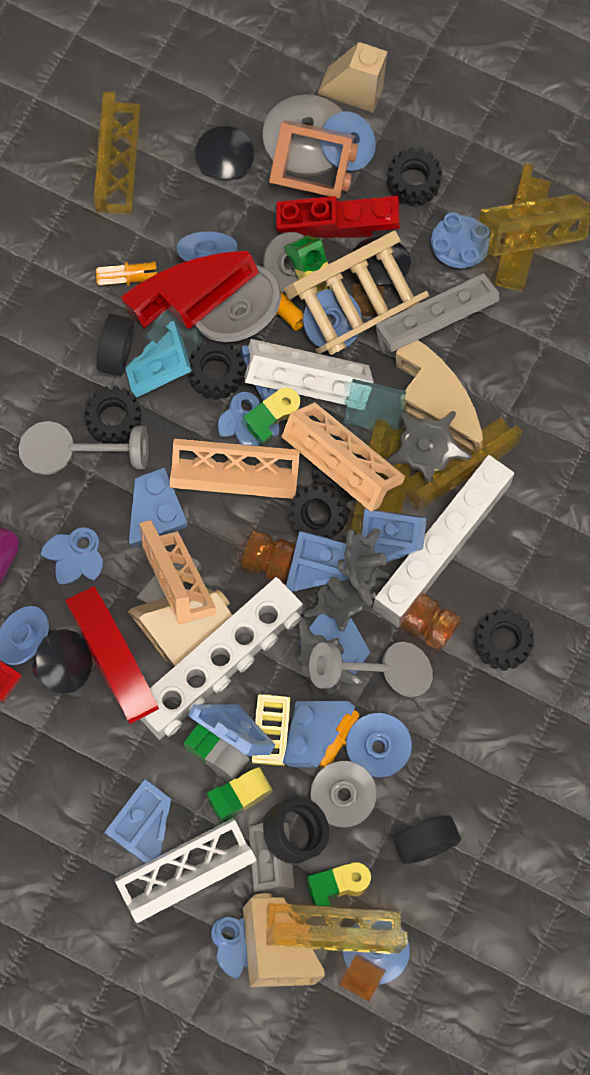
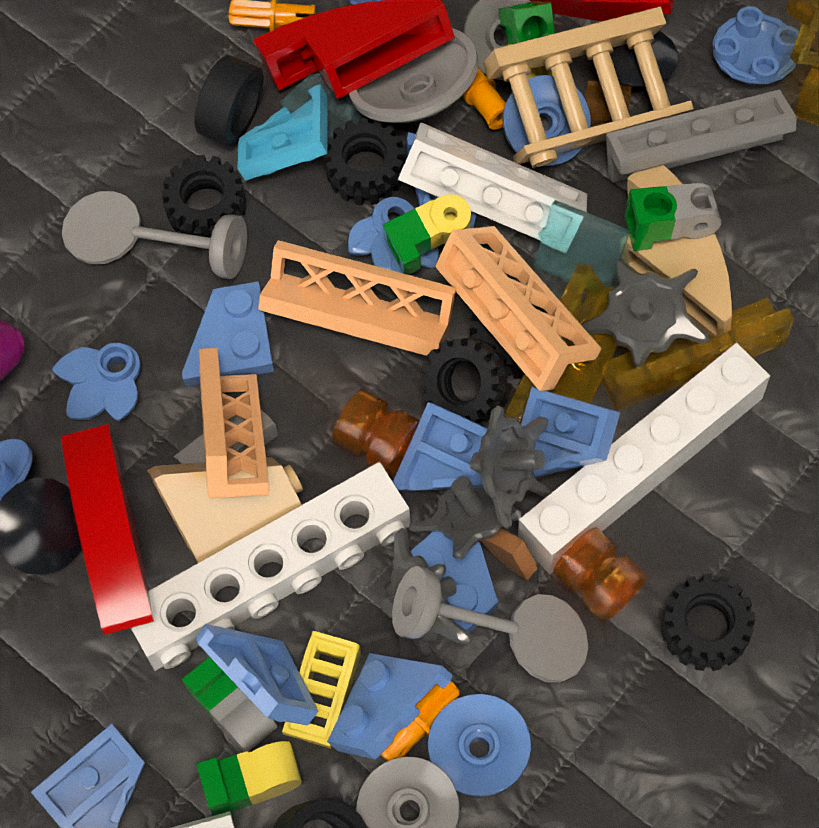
camera: 20 degrees right, 5 degrees down
(372, 619) = (512, 553): none -> medium nougat tile
(430, 376) = (670, 214): none -> leg

